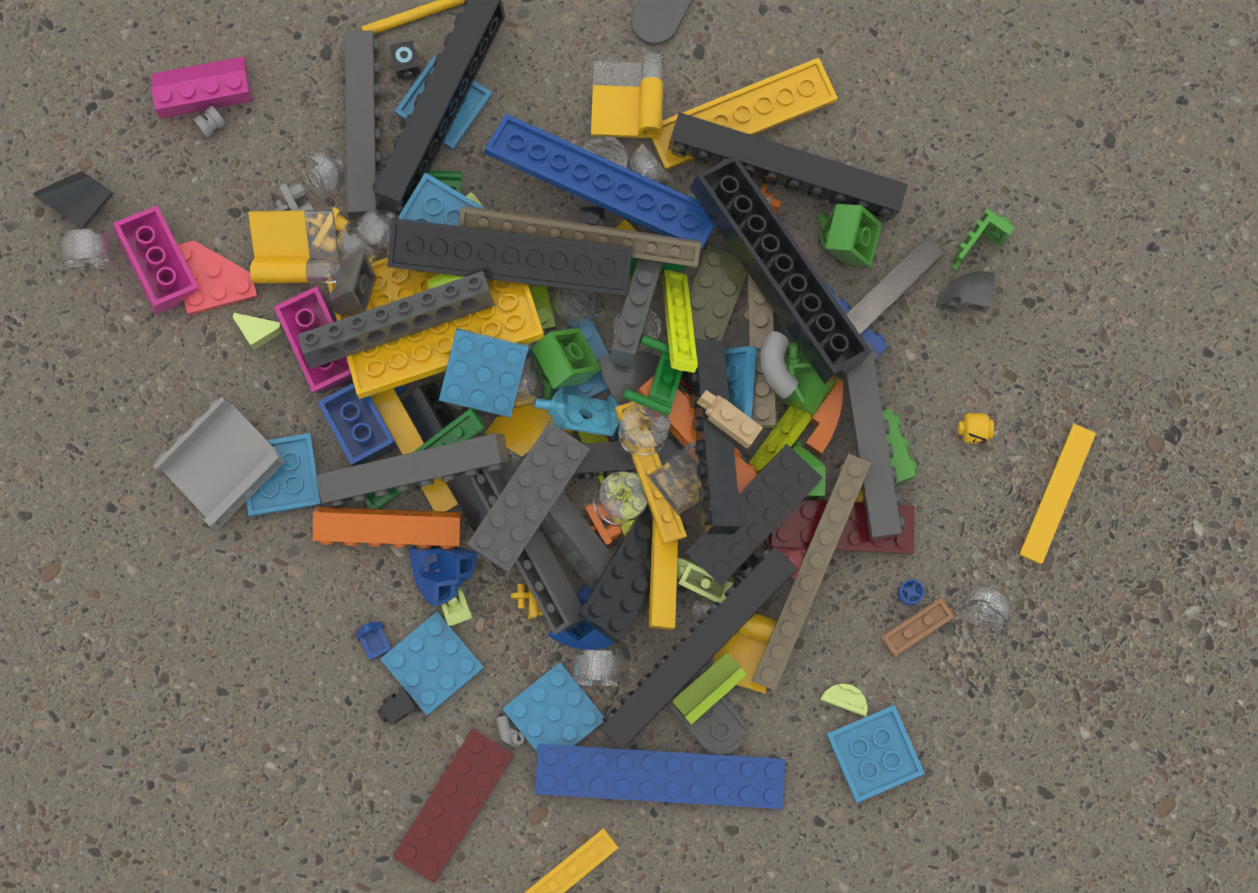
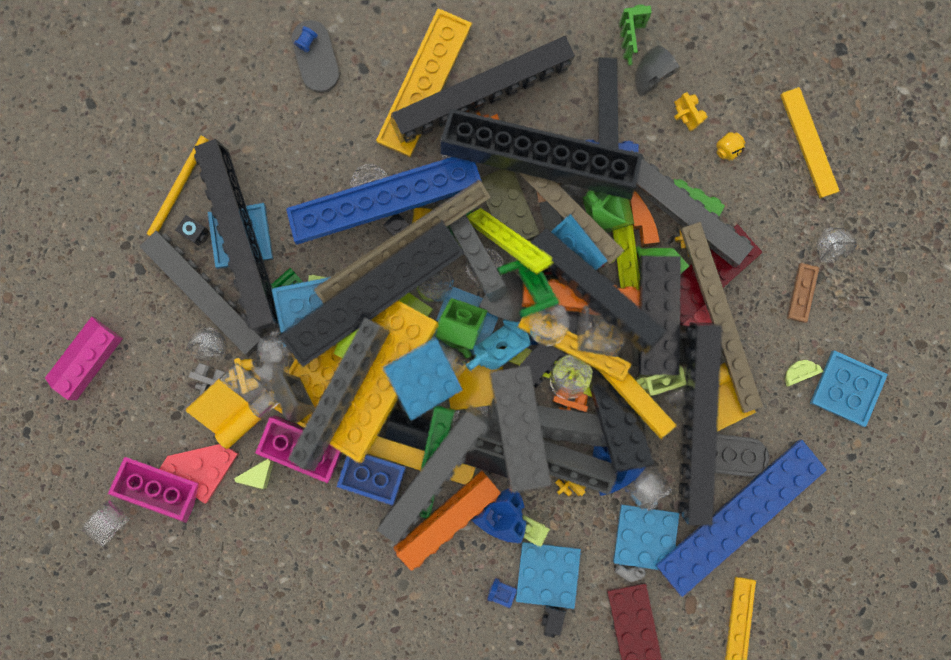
camera: 40 degrees left, 5 degrees up
(76, 198) = (70, 497): black slope -> none
(209, 121) = (108, 375): light grey wheel -> none
(220, 462) = (311, 575): light grey panel -> none
(293, 484) = (353, 548): dark azure plate -> none
(628, 98) = (348, 133): yellow door -> none
(645, 163) = (396, 163): clear cylinder -> none
(709, 688) = (727, 439): lime panel -> none
(730, 419) = (597, 272): tan hinge -> none
(774, 364) = (591, 215): light grey cylinder -> none
(850, 234) = (554, 97): bright green piece -> none
(914, 592) = (786, 274): blue wheel -> none
(964, 359) = (687, 111): none -> yellow hips

